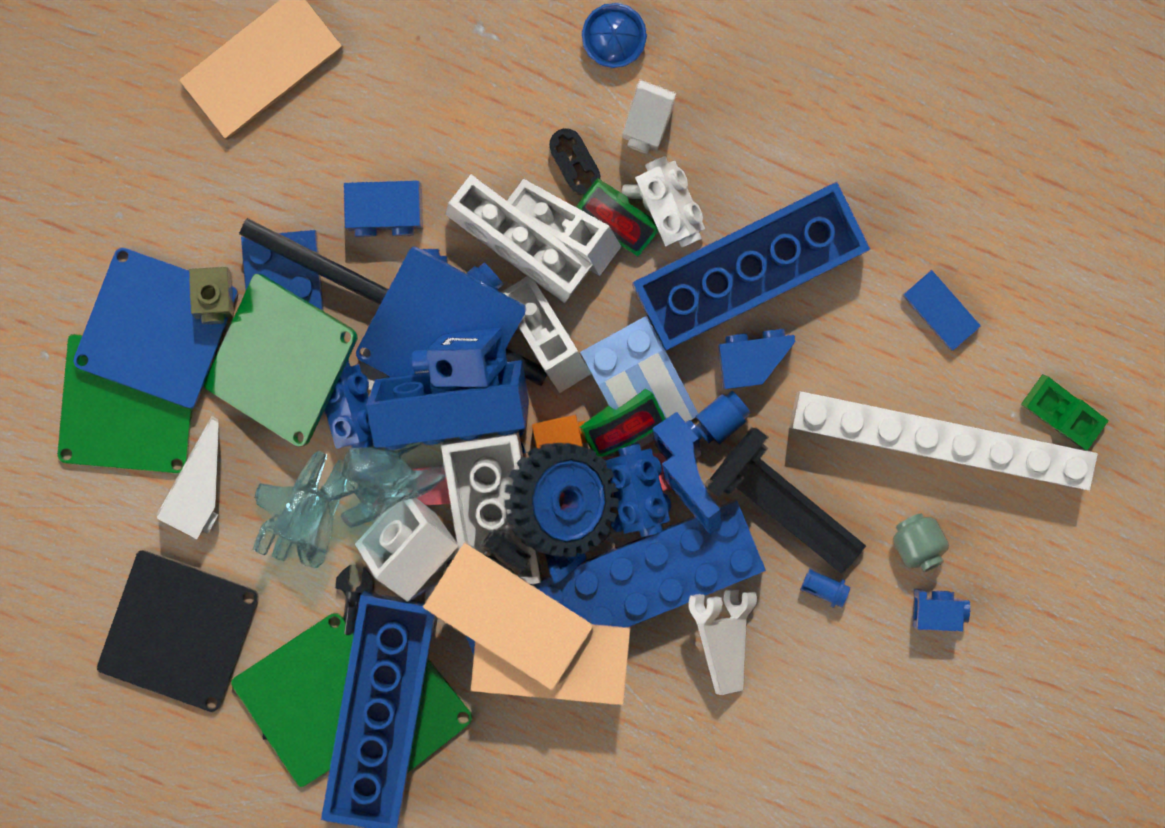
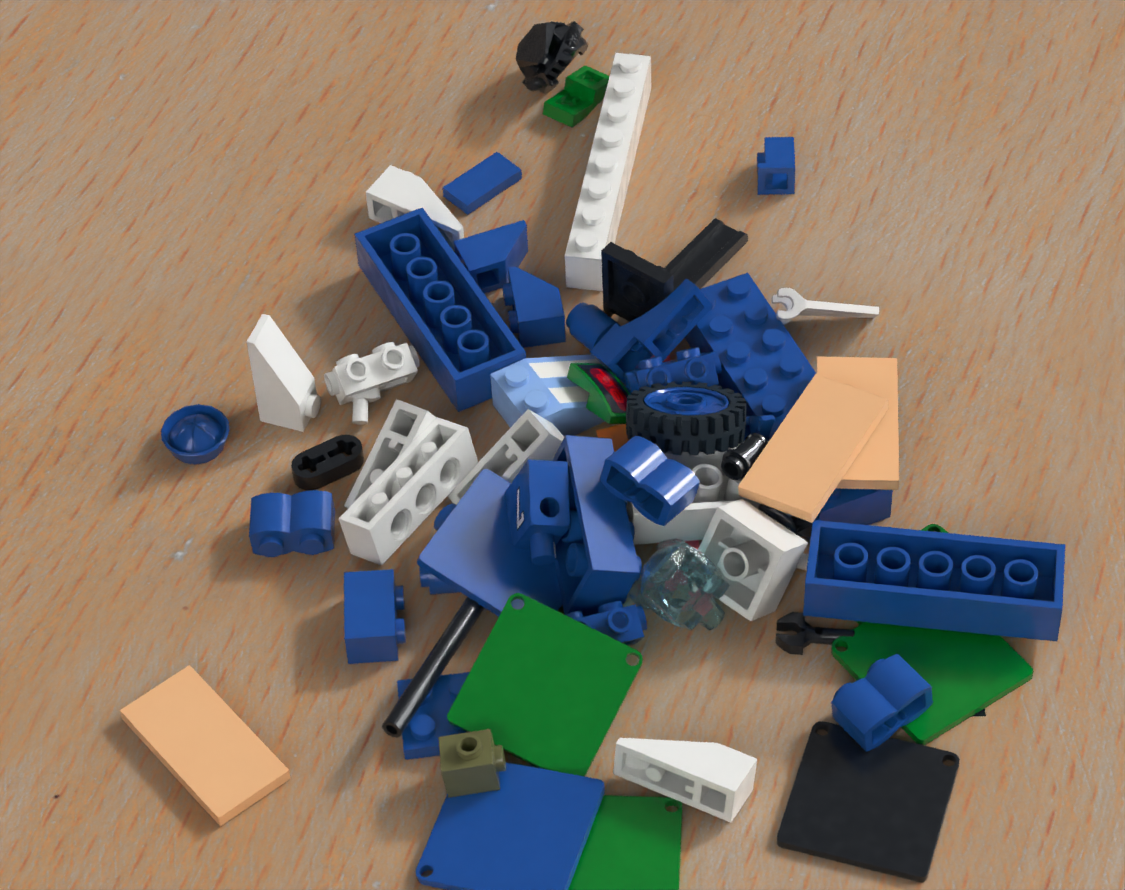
camera: 85 degrees left, 40 degrees down
(257, 650) = (881, 701): none -> blue brick
(299, 515) = (719, 666): clear light blue piece -> none
(463, 462) = (649, 480): none -> blue brick
(494, 131) = (292, 523): none -> blue brick
(629, 224) = (370, 422): slope -> none
(823, 317) = (492, 252): none -> blue slope
(825, 588) = (765, 242): blue pin -> none
(907, 233) = (402, 192): none -> white slope
(920, 542) = (710, 179): sand green head -> none
(1117, 377) = (548, 52): none -> black helmet

